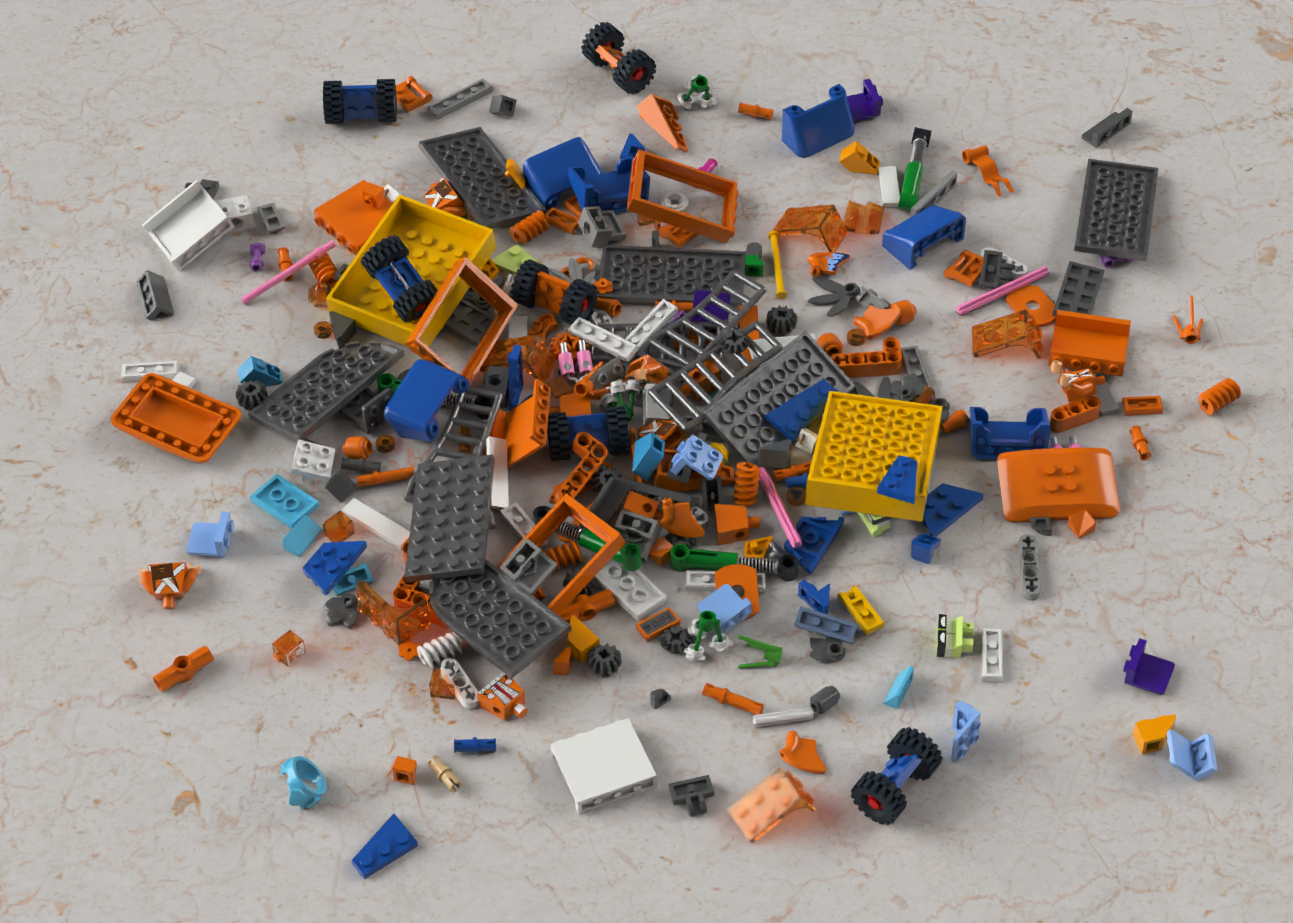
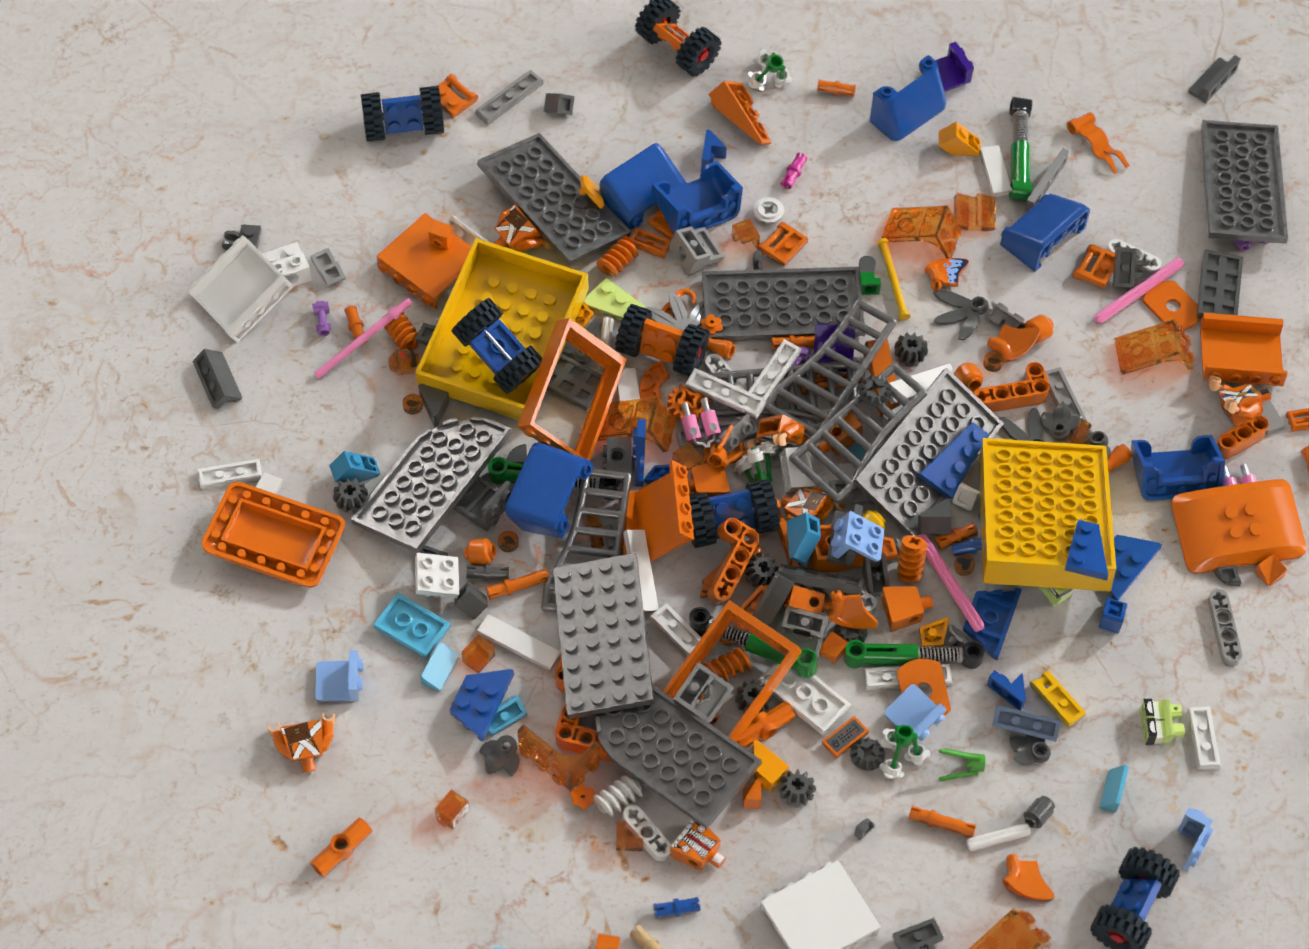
camera: 10 degrees left, 10 degrees up
(689, 176) = (787, 181): orange window -> none

